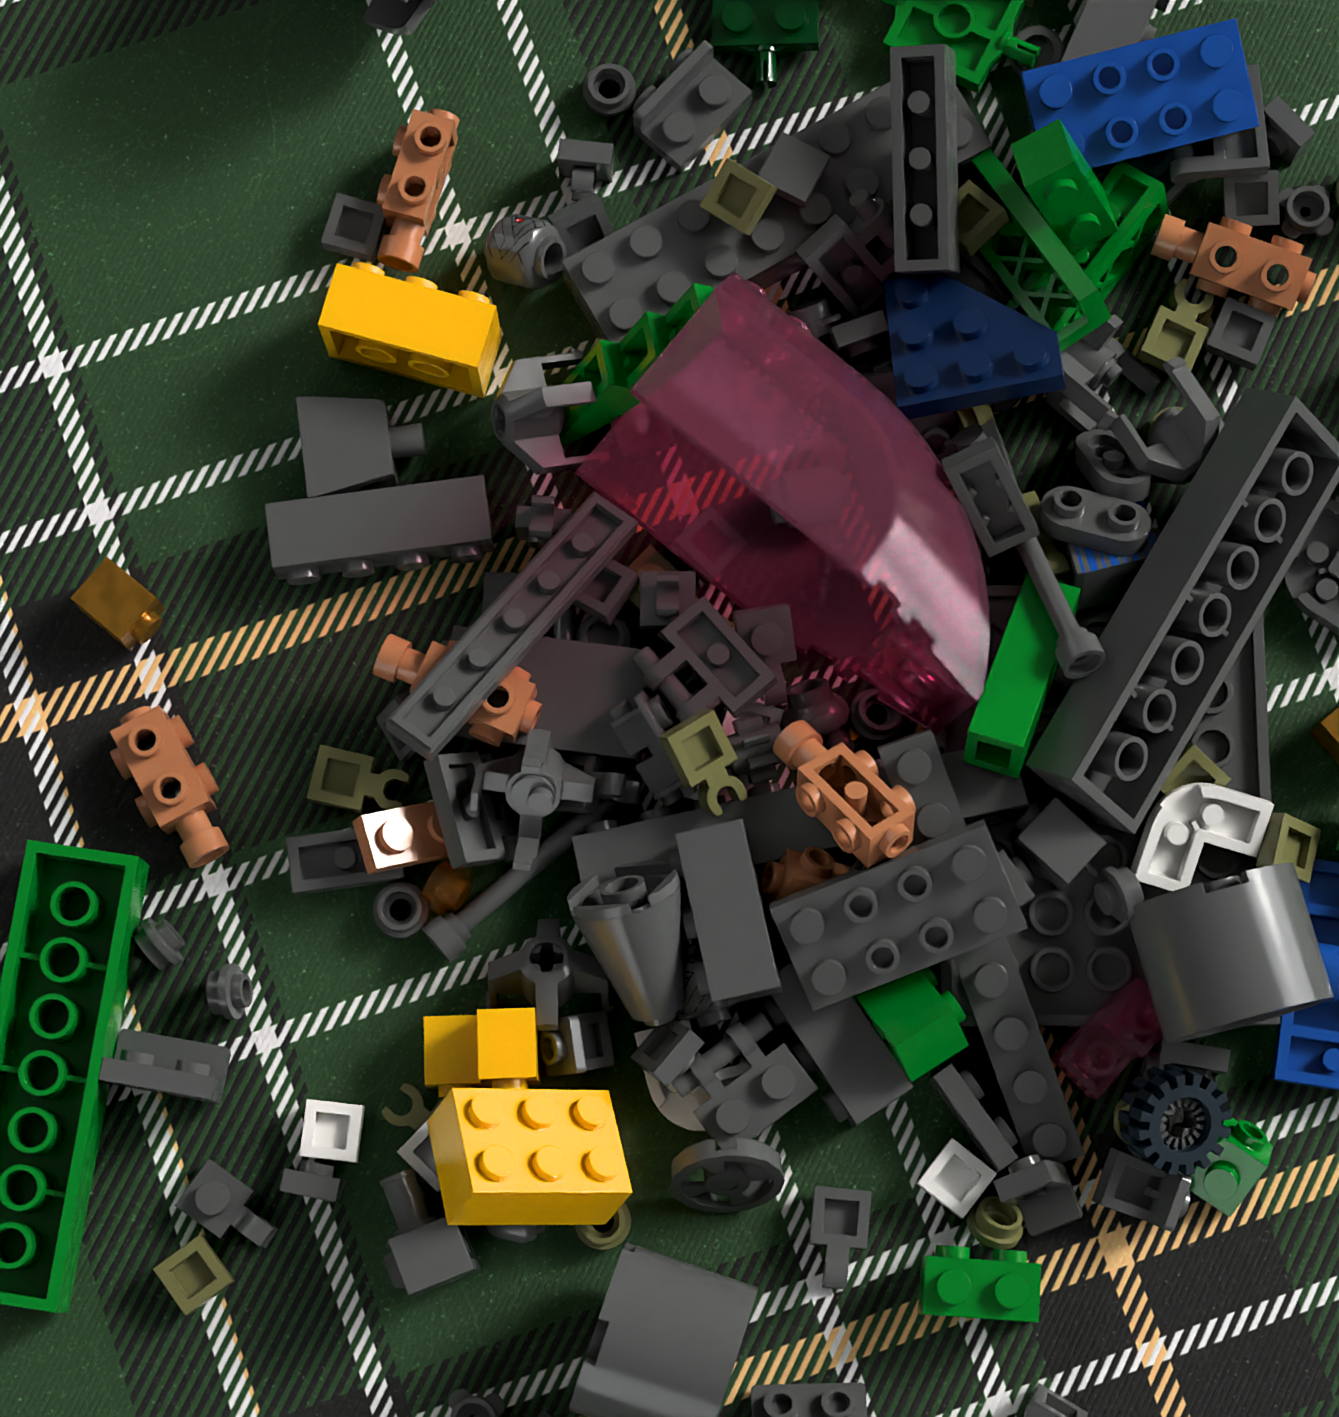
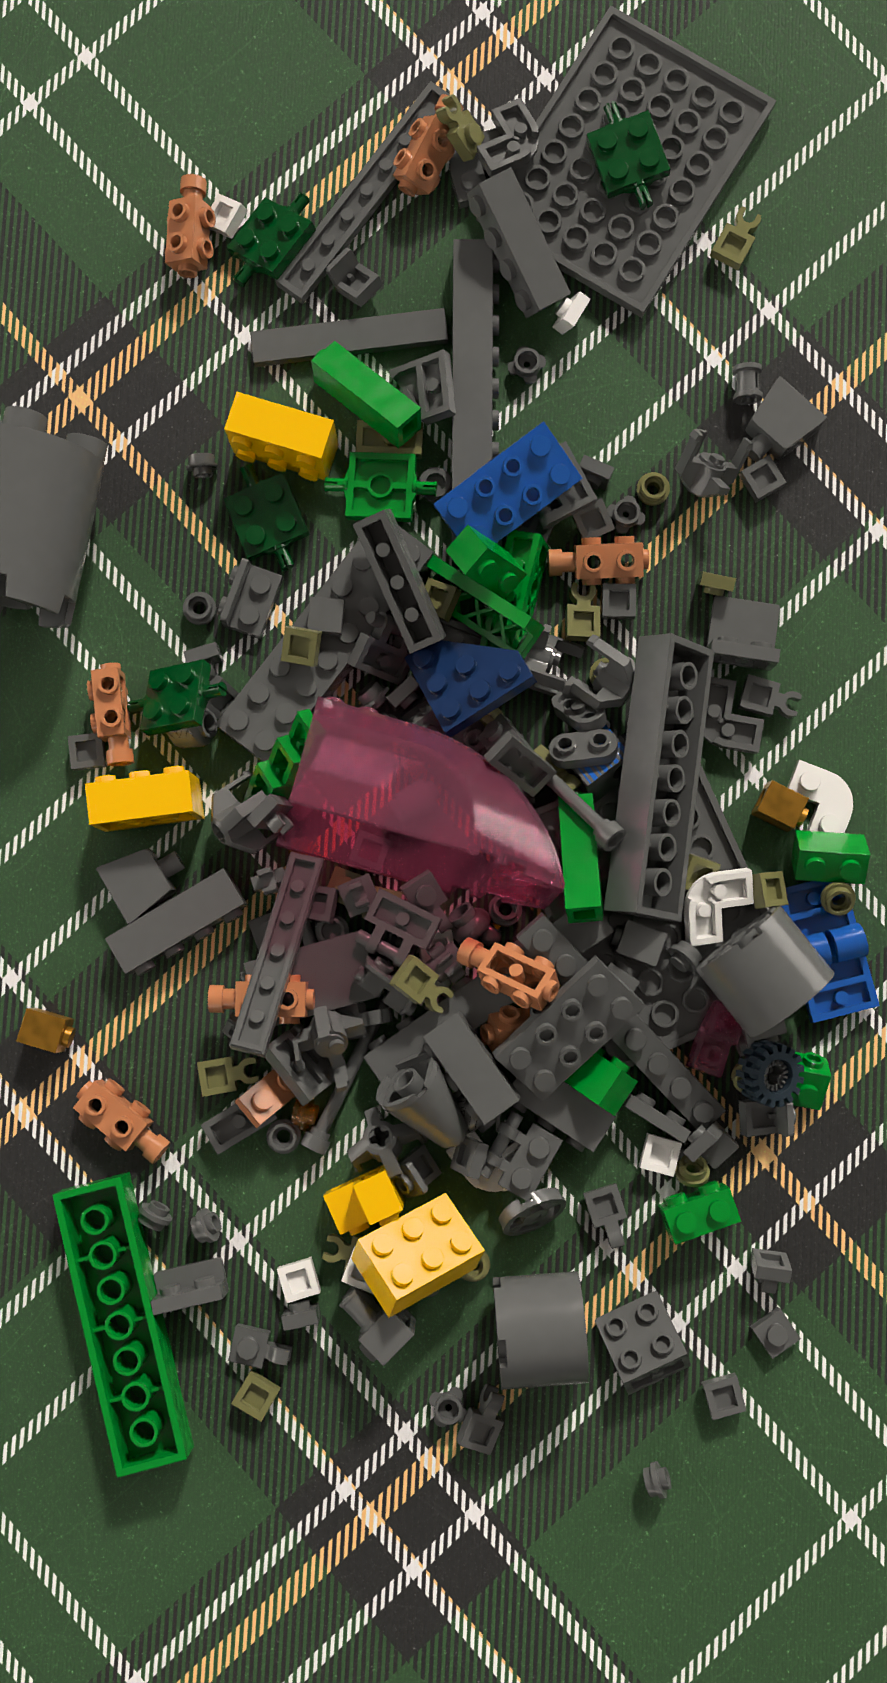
camera: 20 degrees left, 5 degrees up
(521, 200) = (176, 697): none -> dark green plate
(589, 422) = (272, 814): none -> dark grey tile

